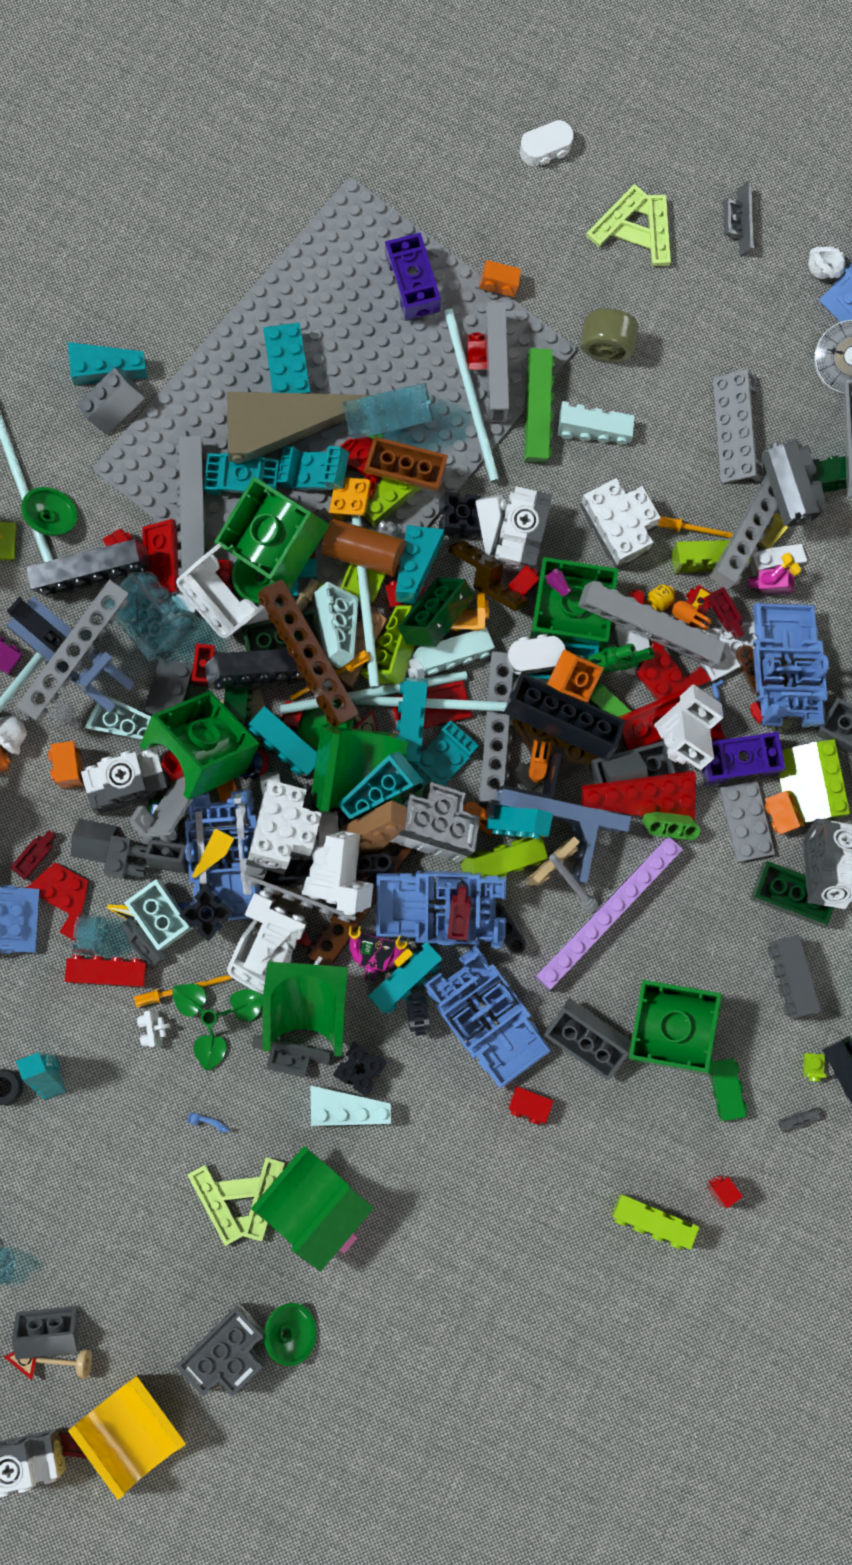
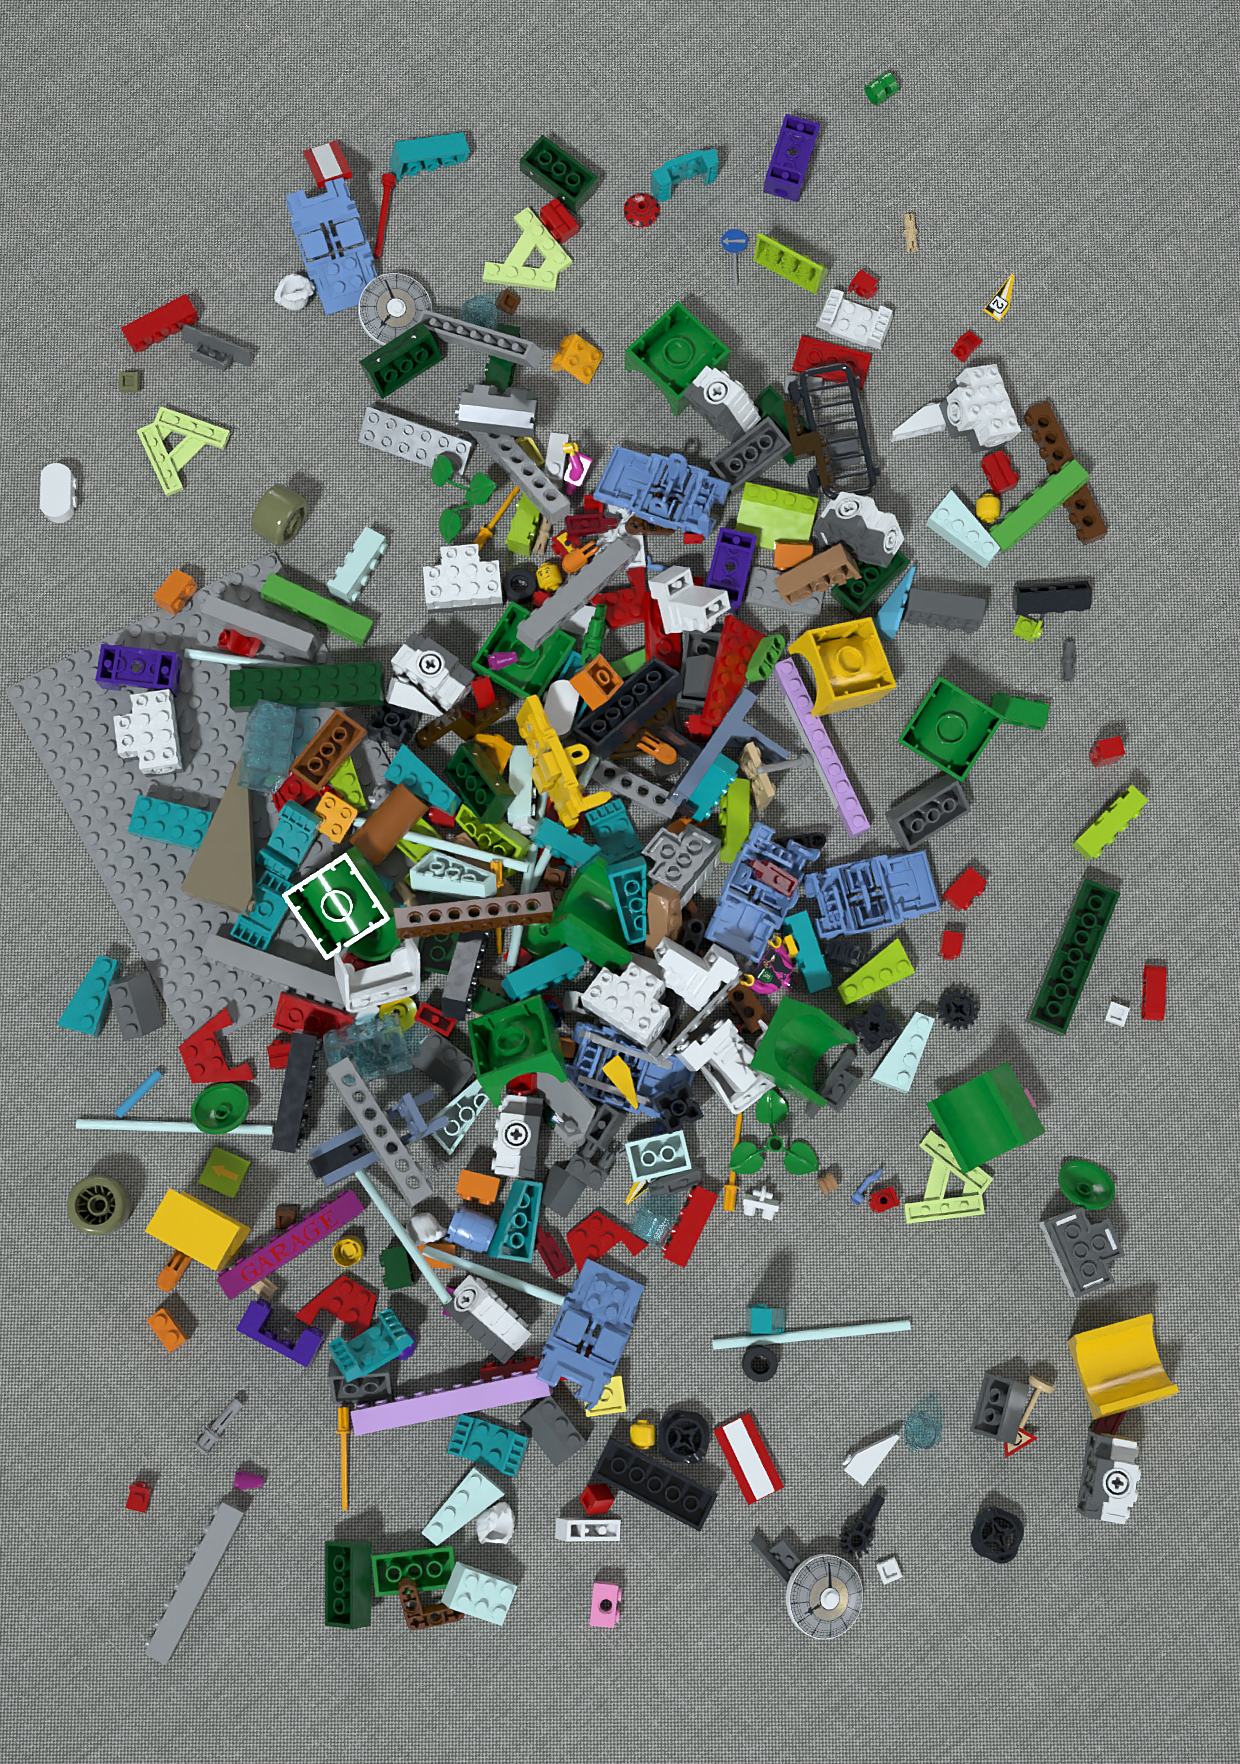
camera: 65 degrees left, 0 degrees up
(25, 774) = (471, 1229): none -> medium blue piece
(38, 439) = (138, 1093): none -> dark azure piece
(46, 813) = (518, 1223): none -> teal wedge
(54, 1134) = (811, 1334): none -> light aqua piece
(91, 480) = (205, 1058): none -> red wing
(195, 1084) = (827, 1183): none -> medium nougat wheel
(207, 635) = (407, 1011): none -> yellow dish
(207, 1147) = (889, 1194): none -> red brick
(359, 311) = (151, 734): none -> white piece
(383, 717) = (555, 873): none -> reddish brown brick
(413, 1053) = (879, 973): none -> lime wedge
(419, 1147) = (963, 1015): none -> black gear
(461, 426) = (309, 686): none -> dark green brick
(469, 1112) = (950, 945): none -> red brick
(470, 1301) = (1116, 1014): none -> white plate
(477, 669) = (556, 768): none -> yellow piece
(506, 1330) = (1153, 992): none -> red beam
(507, 1236) = (1072, 957): none -> dark green brick
(573, 789) = (697, 730): none -> red brick
(645, 564) = (519, 597): none -> black tyre
(676, 159) = (128, 382): none -> olive plate
(695, 902) = (846, 665): none -> yellow piece
(696, 577) = (543, 535): none -> tan pin
(709, 500) = (478, 493): none -> green plant
(742, 162) = (160, 323): none -> red brick
(746, 610) = (592, 506): none -> red panel
(764, 927) = (890, 614): none -> medium azure wedge
(773, 841) = (817, 574): none -> medium nougat wedge
(805, 380) = (401, 360): none -> dark green brick

